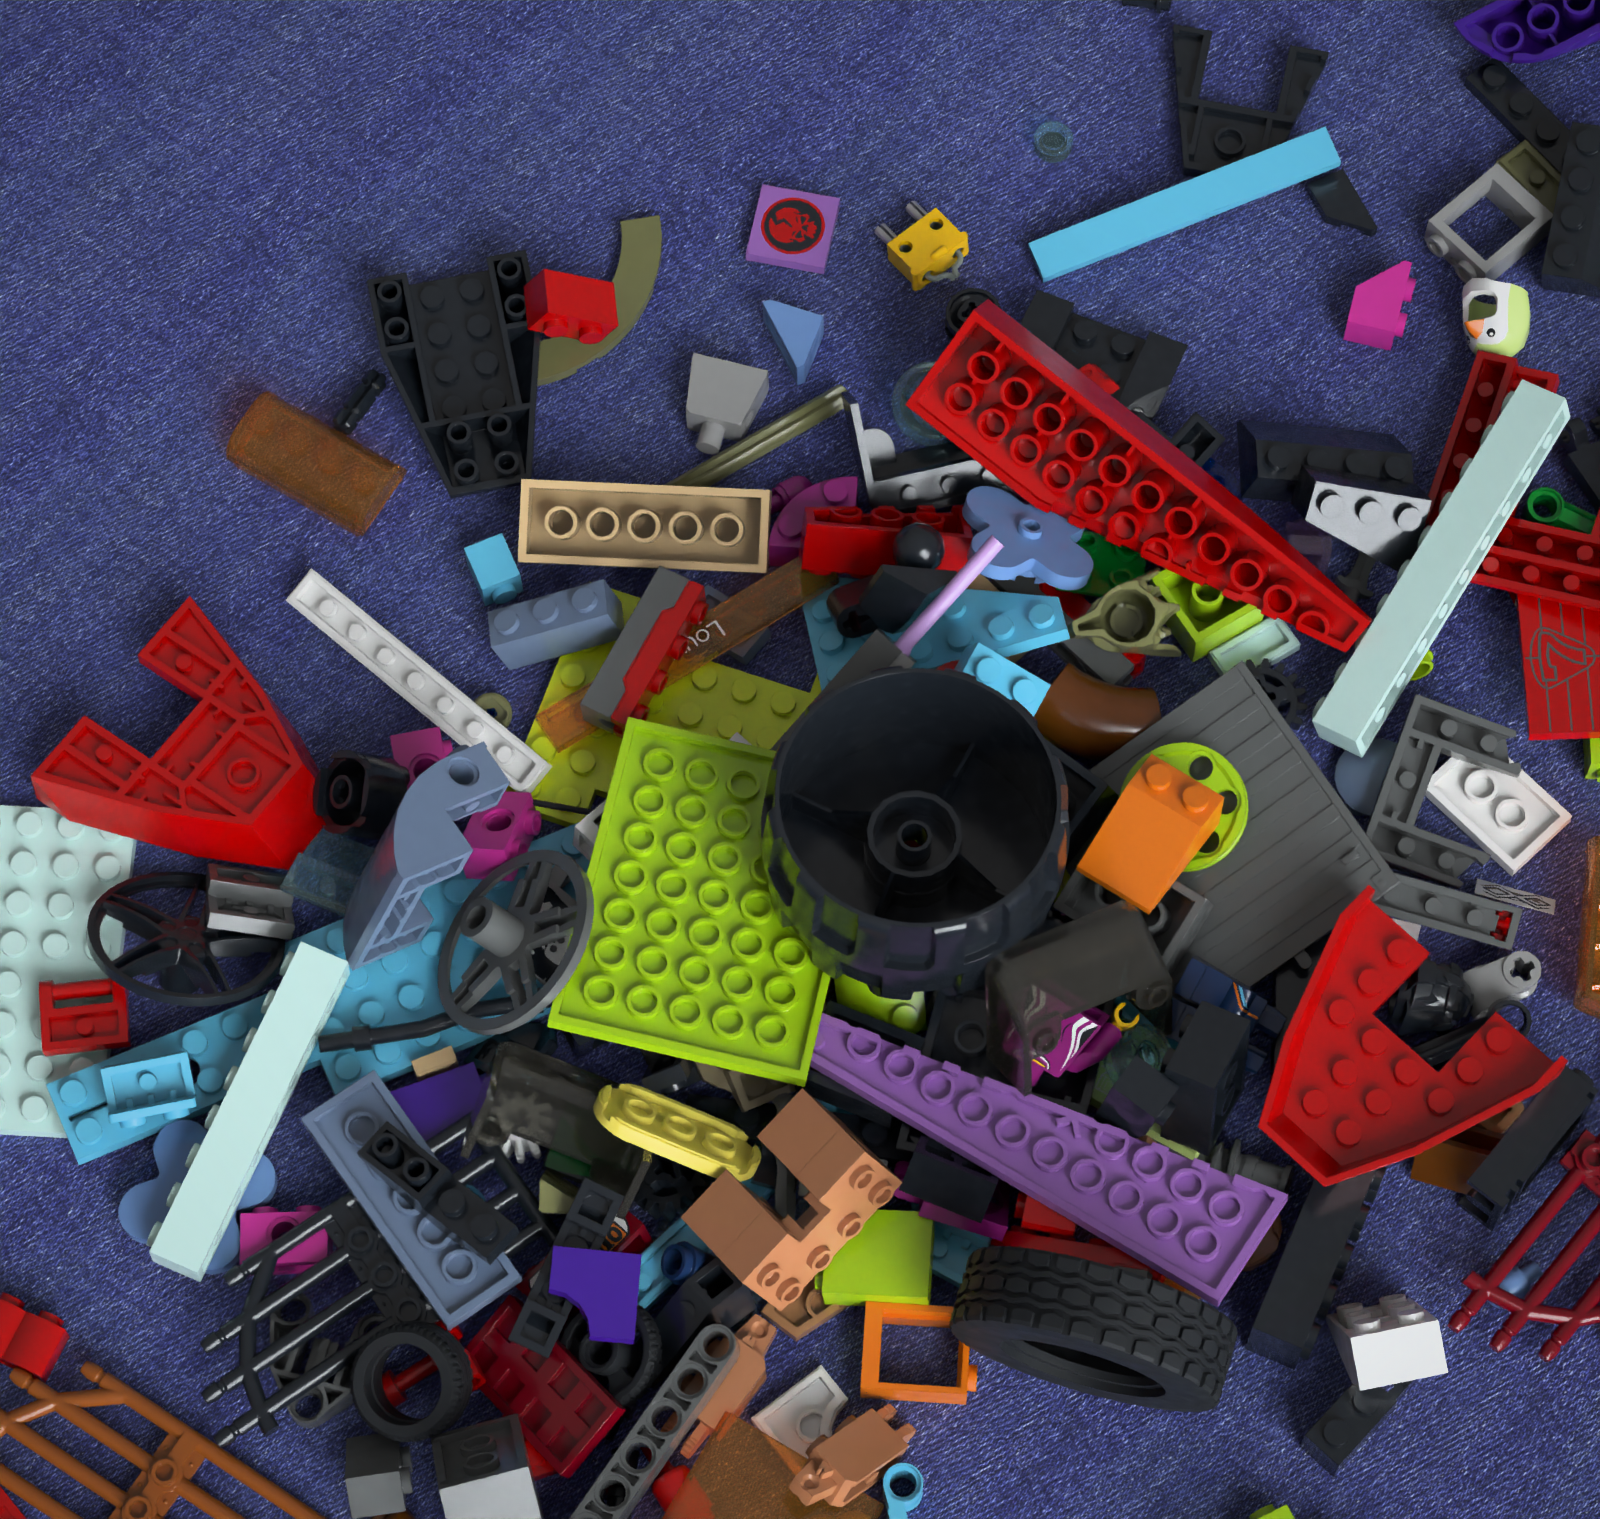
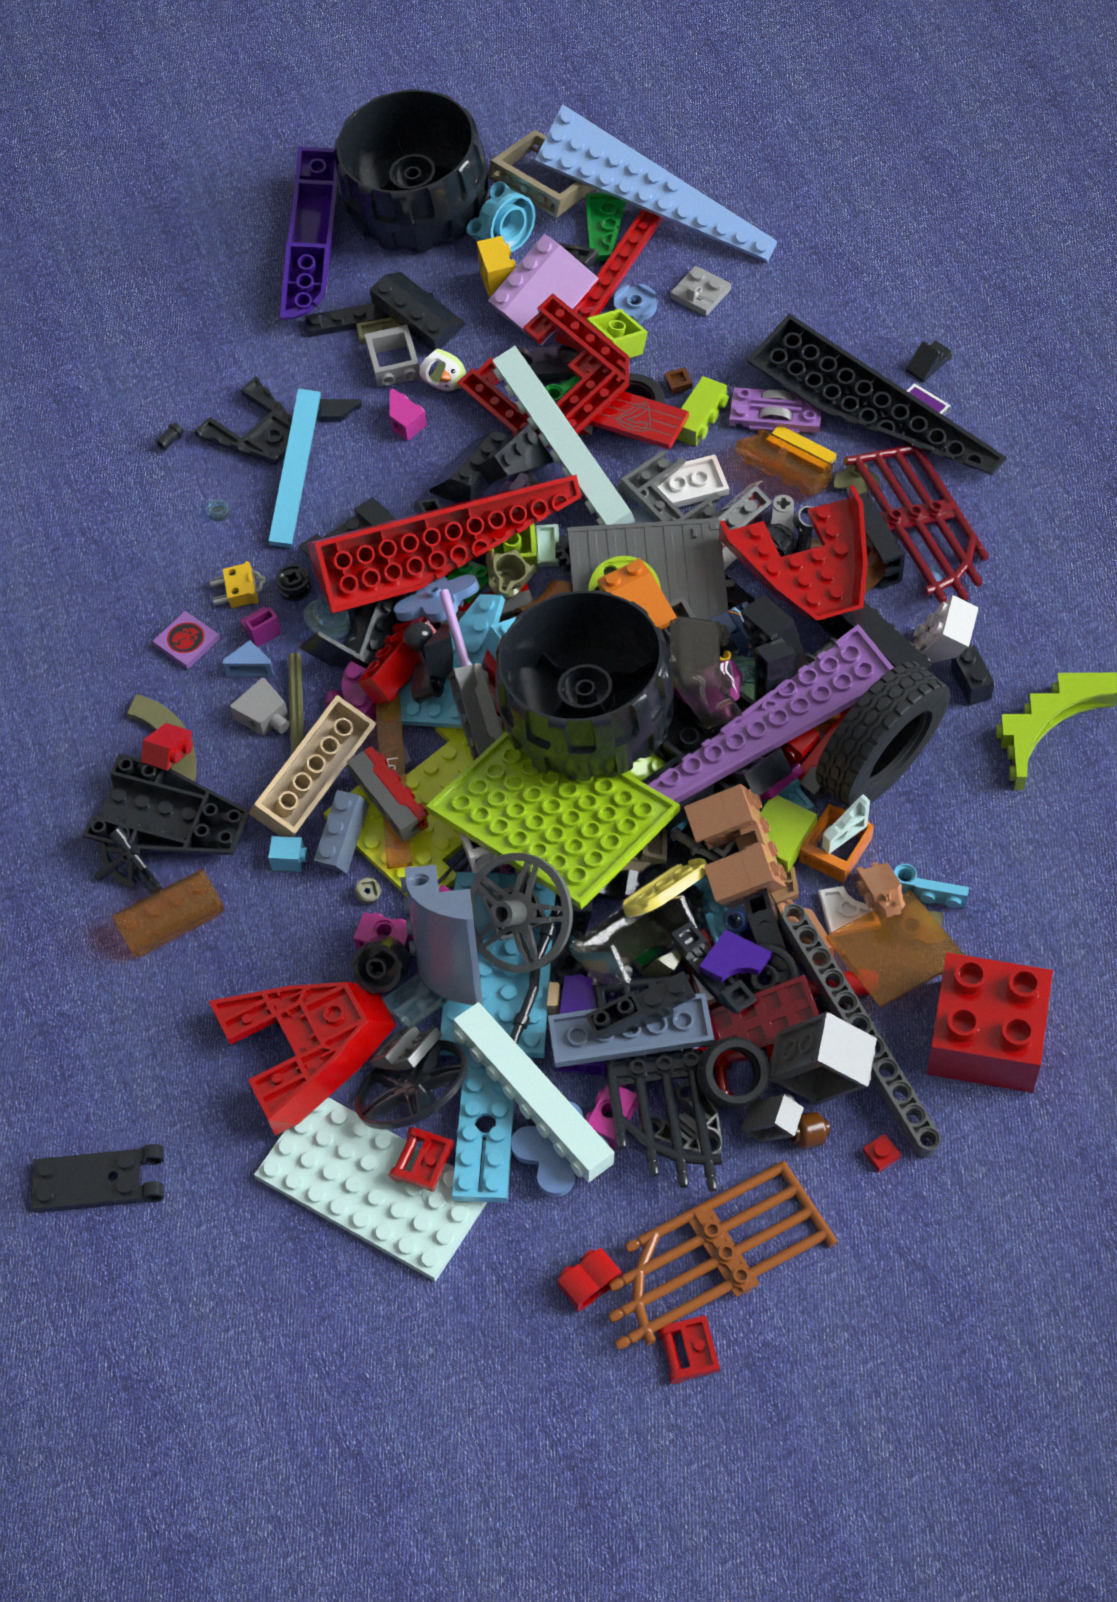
camera: 60 degrees left, 10 degrees down
(149, 1089) = (491, 1136): medium azure bracket -> none
(376, 333) = (129, 854): none -> black piece
(415, 679) = (317, 920): white tile -> none
(868, 317) = (261, 626): none -> magenta piece
(925, 1351) = (847, 825): none -> light aqua wing

